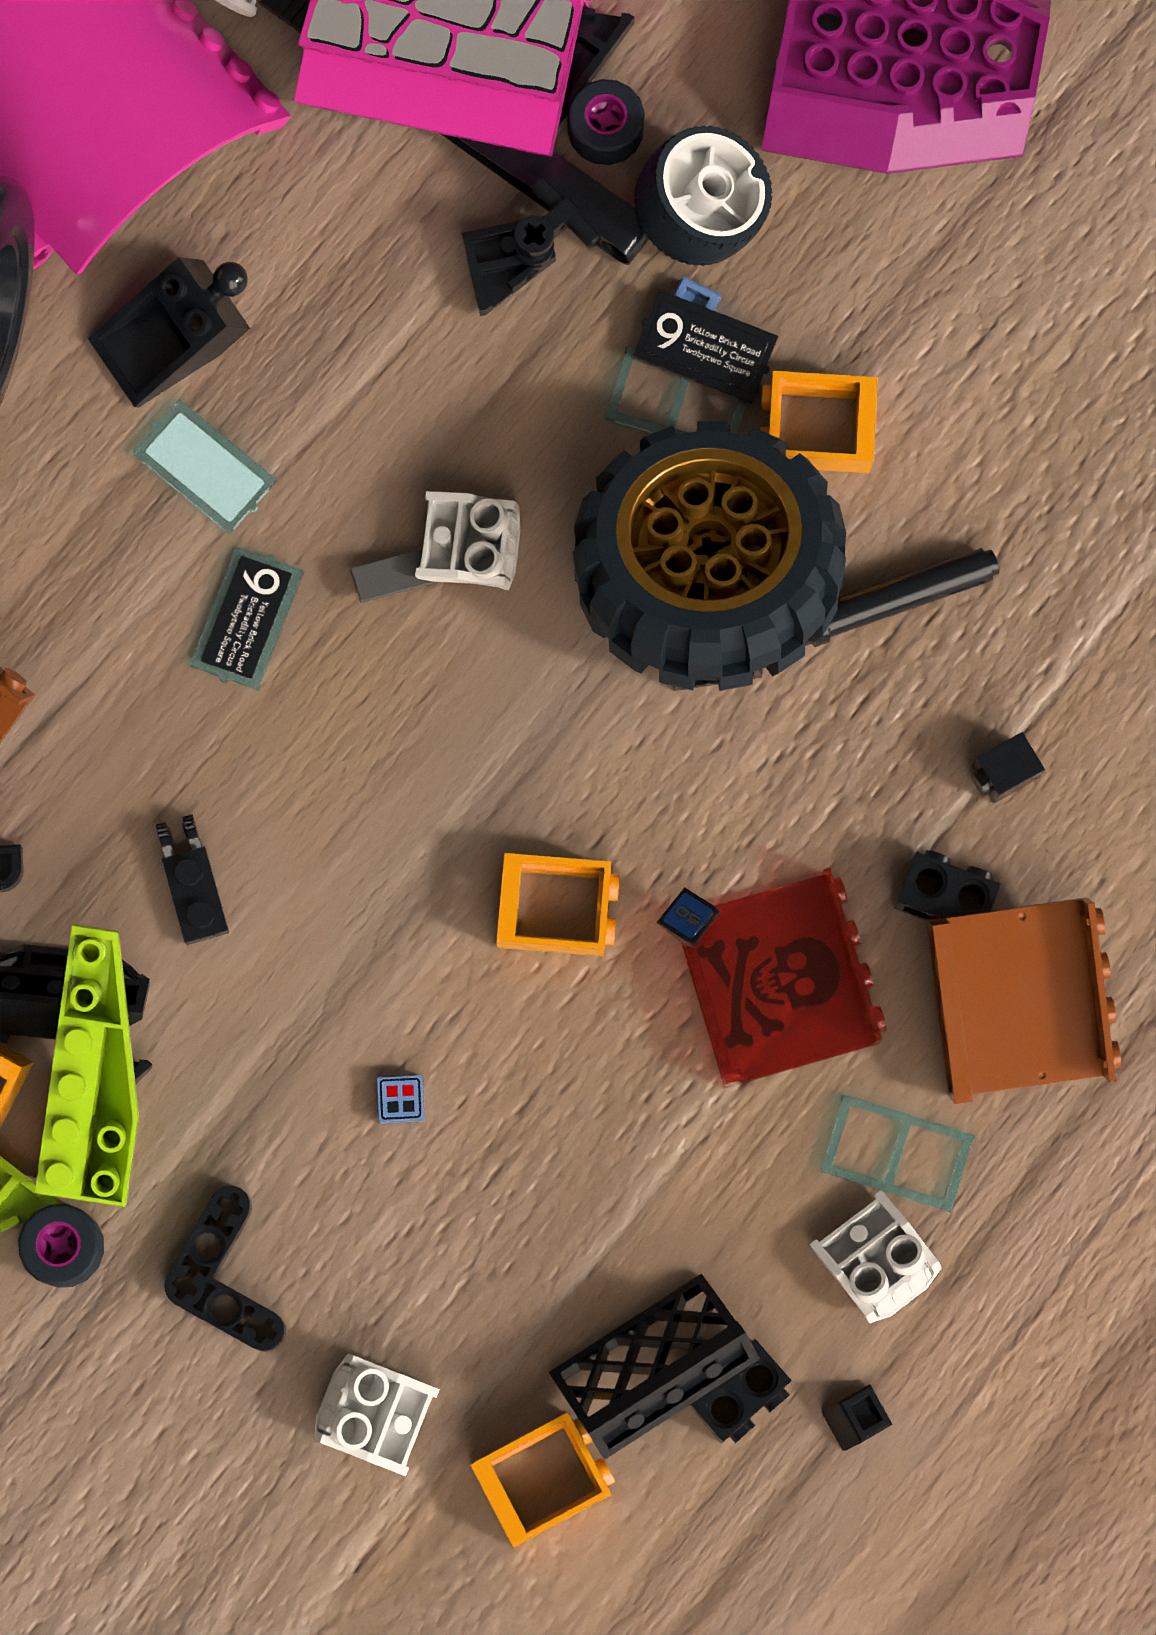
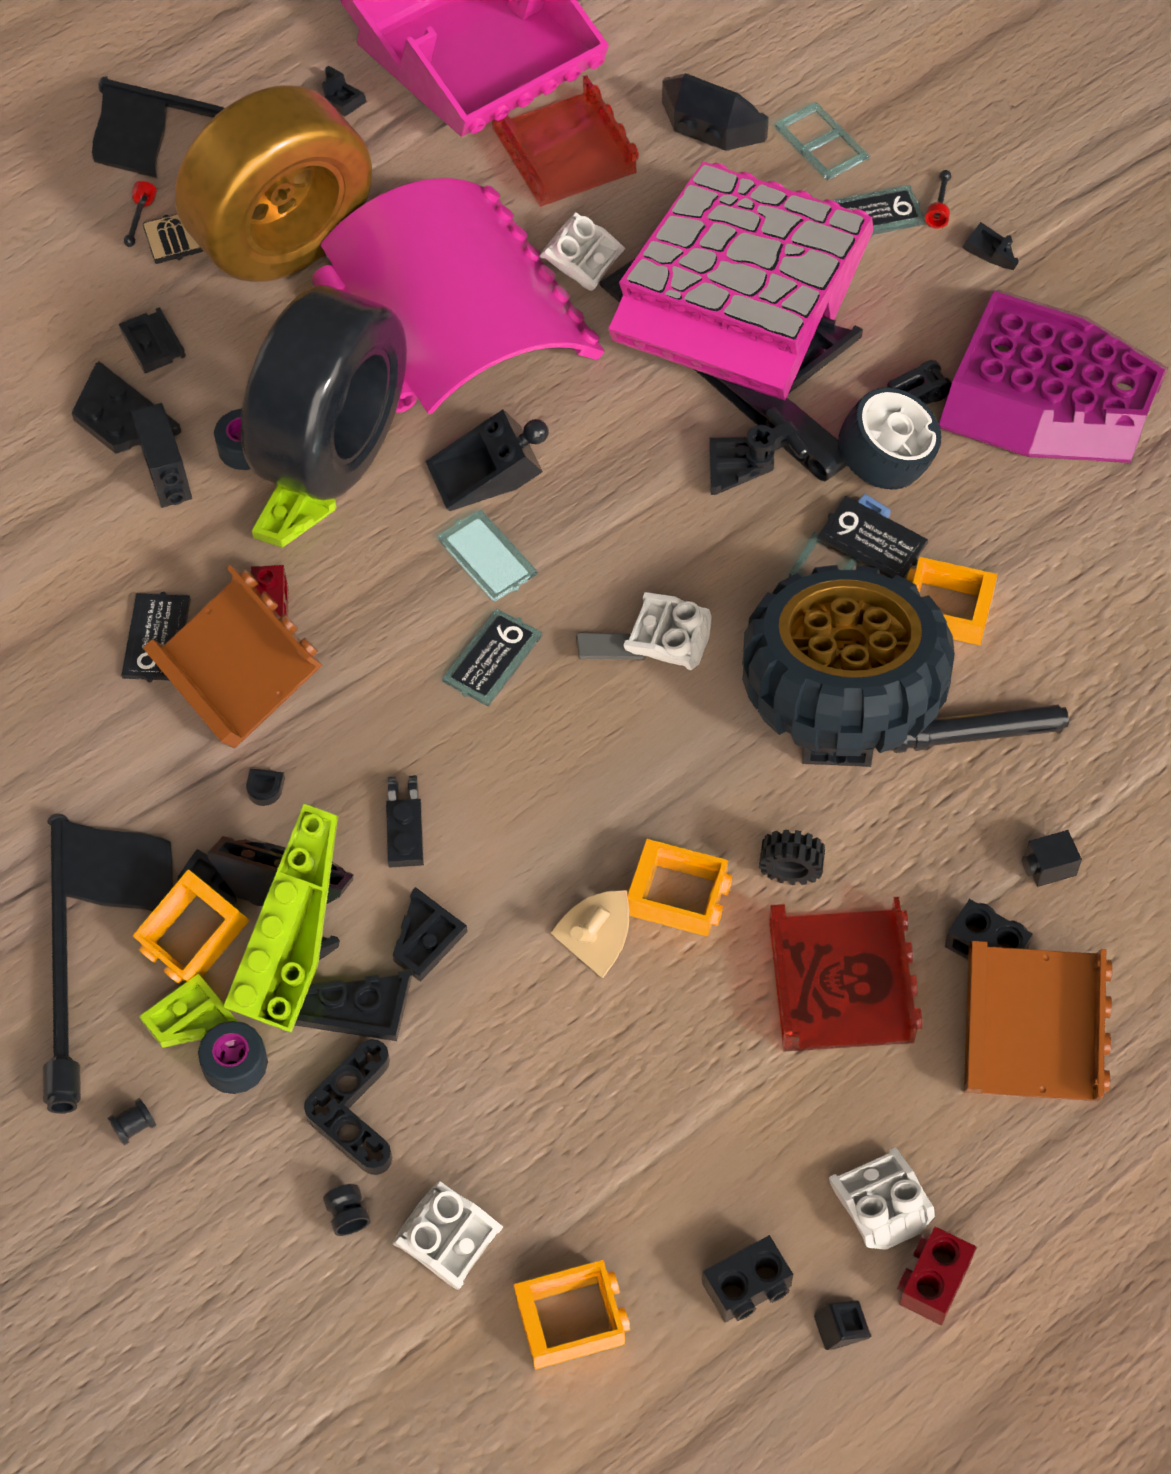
camera: 15 degrees right, 20 degrees down
(199, 1144) = (358, 1007): none -> black wing
(244, 1399) = (346, 1209): none -> black wheel
(256, 1032) = (426, 935): none -> black wing
(400, 1099) = (525, 1006): medium blue tile -> none
(466, 982) = (596, 929): none -> tan shield
(606, 105) = (828, 389): black wheel -> none
(668, 1386) = (679, 1257): black fence -> none
(689, 838) = (792, 857): none -> black tyre
(689, 918) = (781, 909): slope -> none
(737, 80) = (924, 384): none -> black piece
(887, 1185) = (926, 1104): clear light blue window -> none
(966, 1342) = (942, 1277): none -> dark red brick

